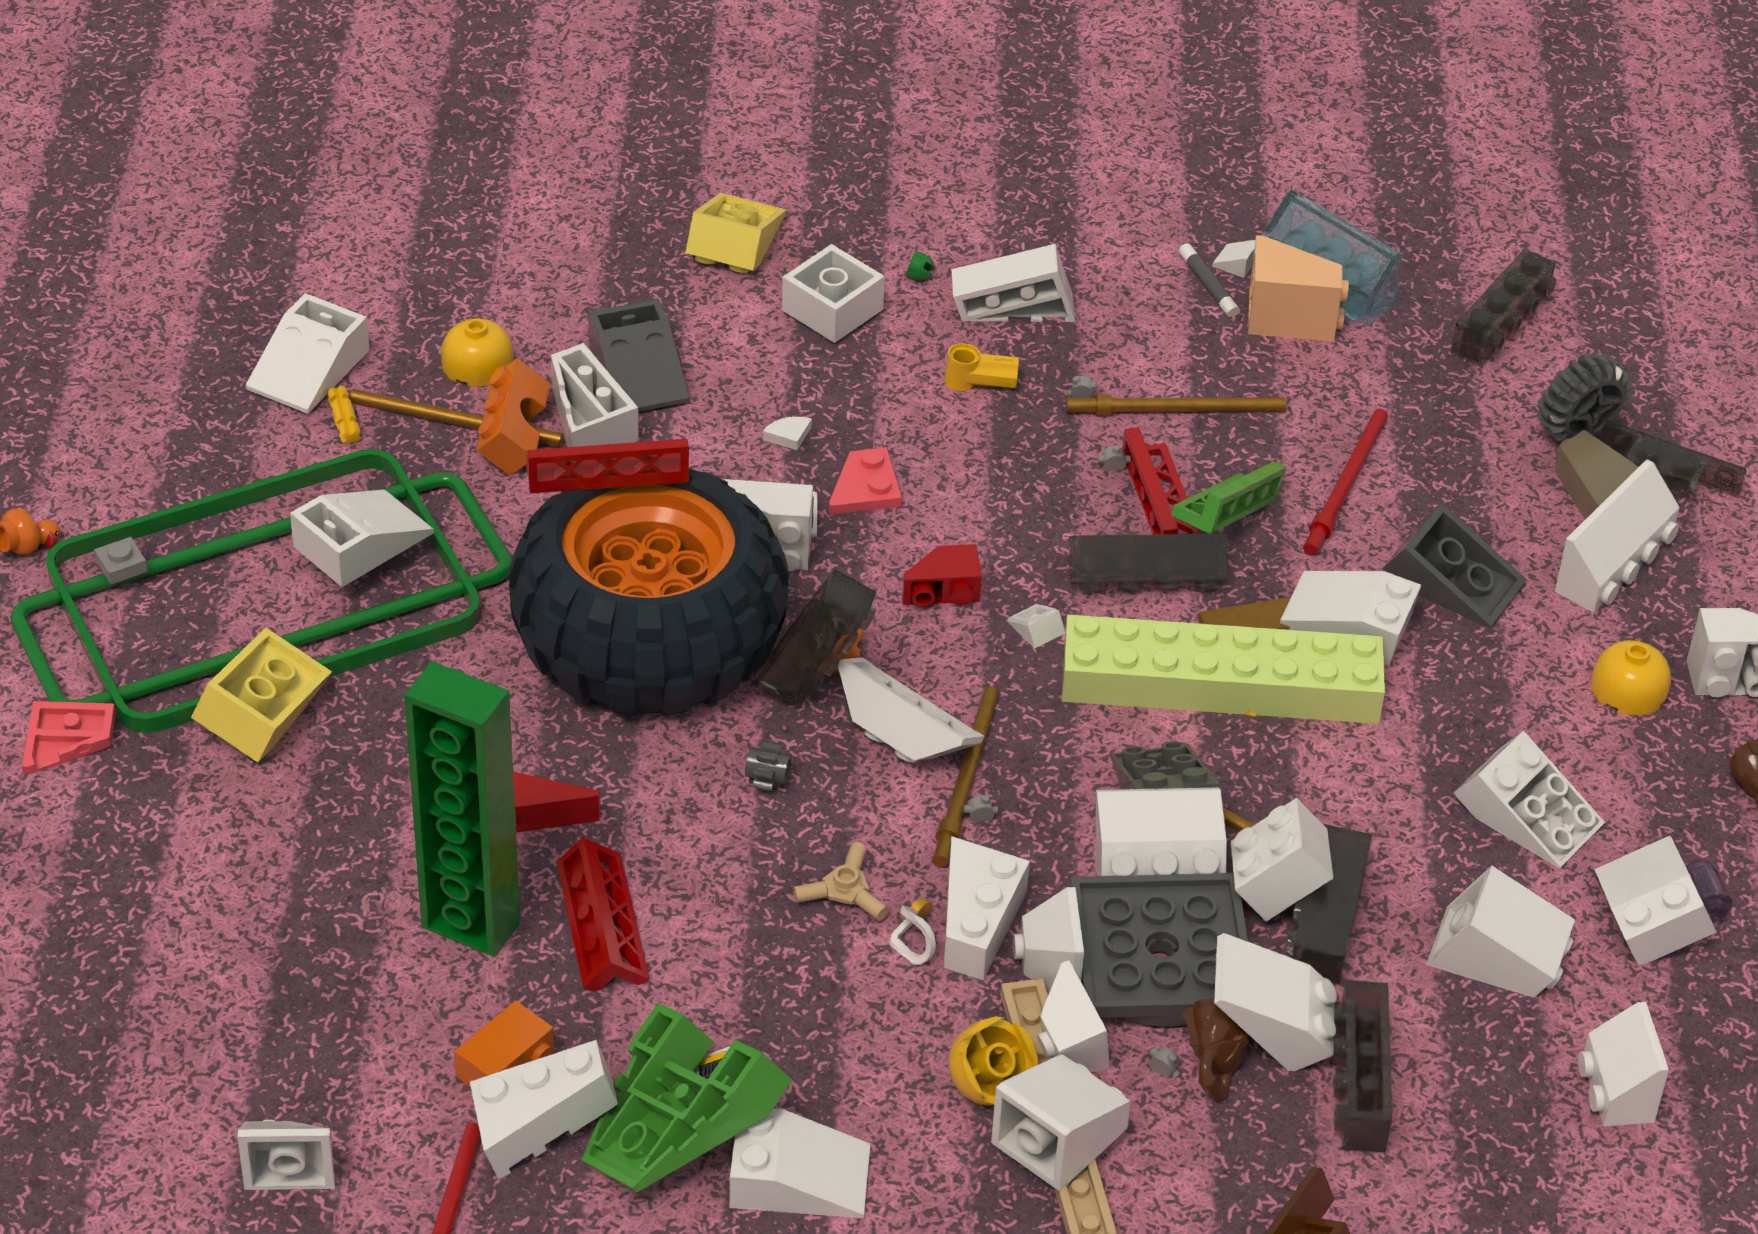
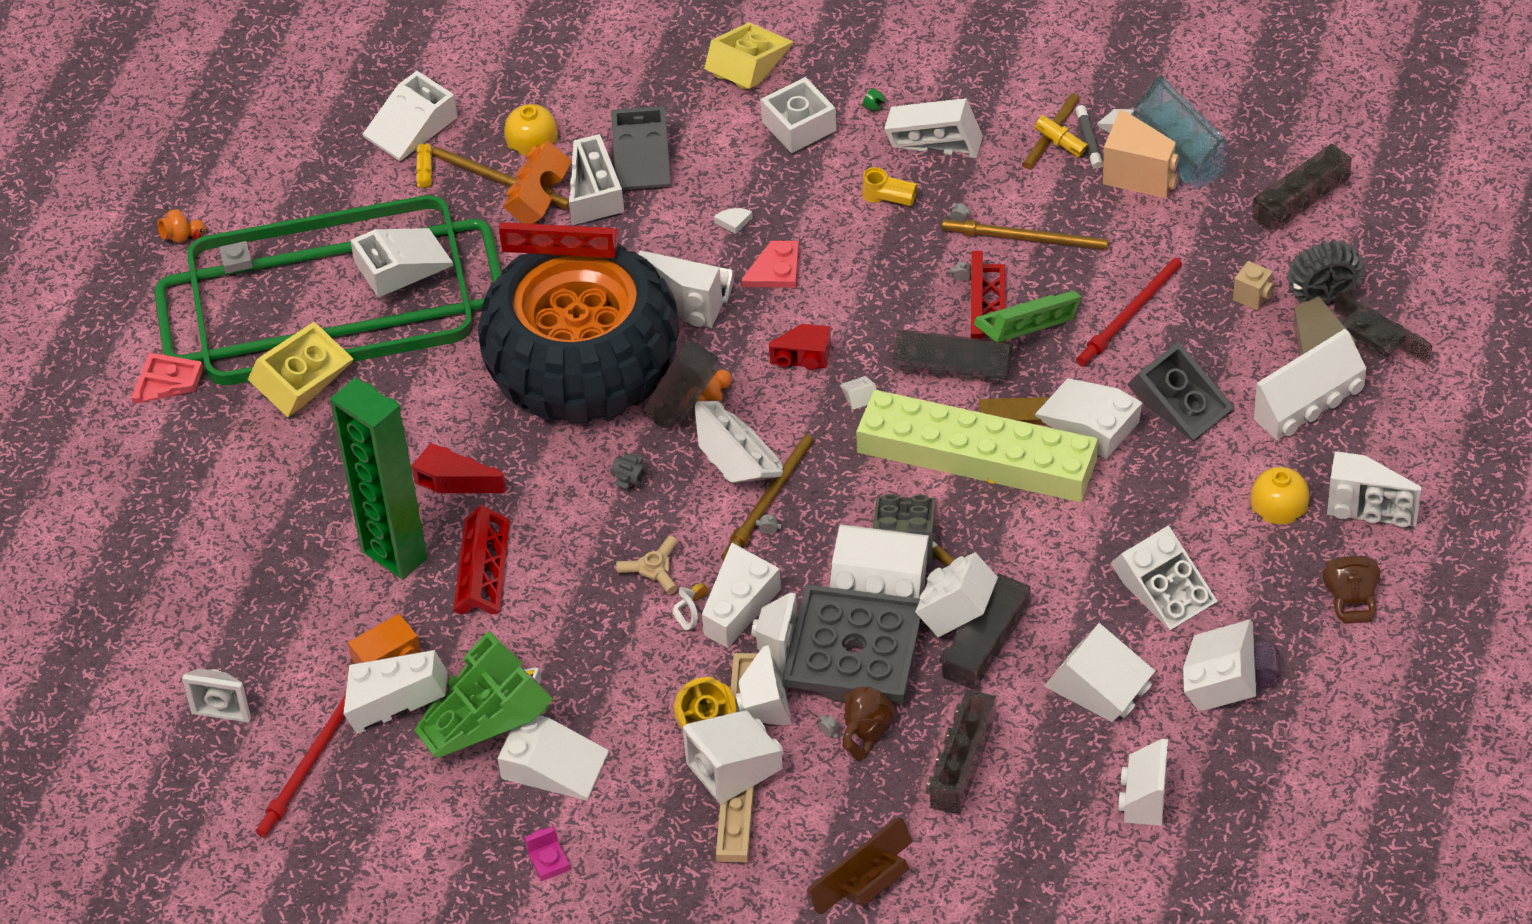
camera: 20 degrees right, 5 degrees up
(1158, 279) = (1044, 141): none -> pearl gold bar
(1177, 281) = (1060, 136): none -> yellow pin
(1276, 1001) = (910, 695): white slope -> none
(1493, 428) = (1253, 285): none -> tan brick

